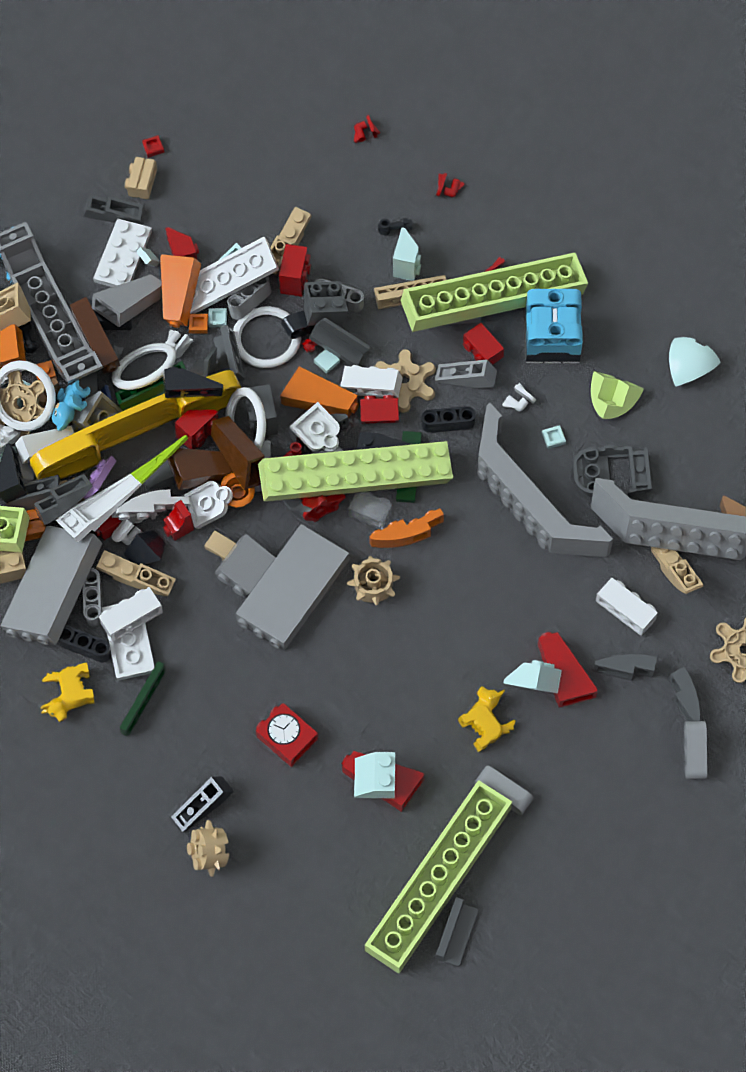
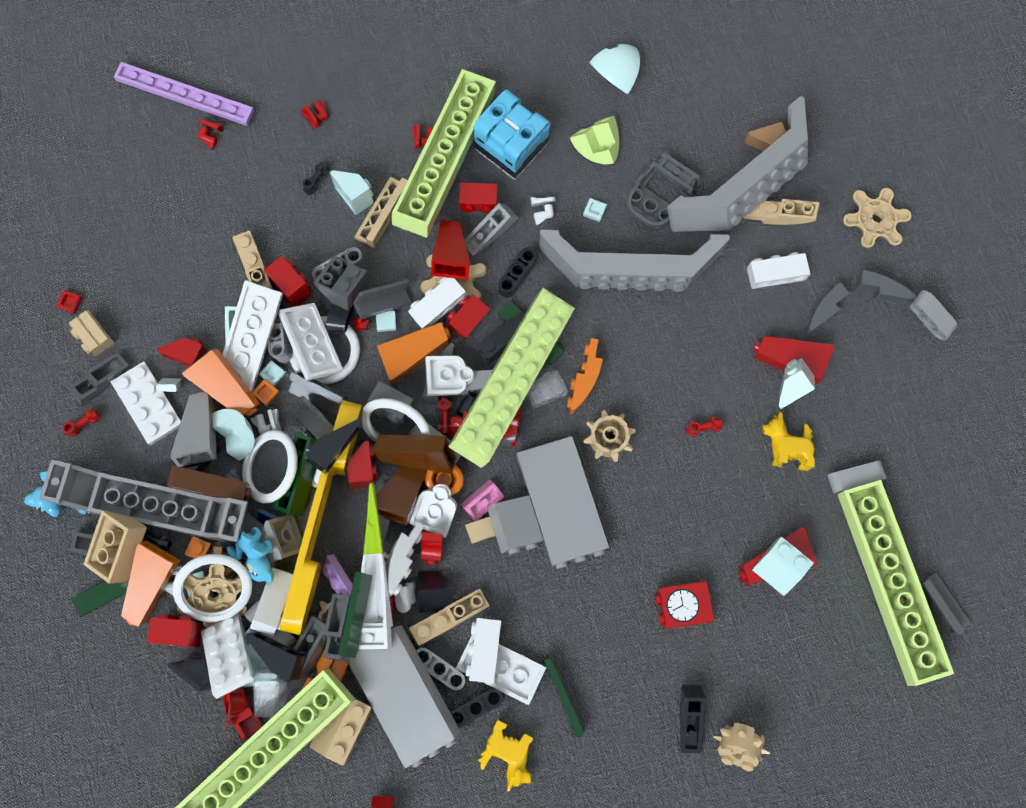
camera: 55 degrees left, 10 degrees up
(61, 224) = (73, 428): none -> red bar
(81, 499) = (355, 615): none -> dark green tile
(152, 322) = (236, 431): none -> light aqua brick
(236, 530) = (481, 499): none -> bright pink slope
(261, 319) = (310, 341): none -> white plate
(379, 90) = (184, 93): none -> lavender plate
(416, 356) = (450, 252): none -> red slope
(436, 641) = (695, 427): none -> red bar

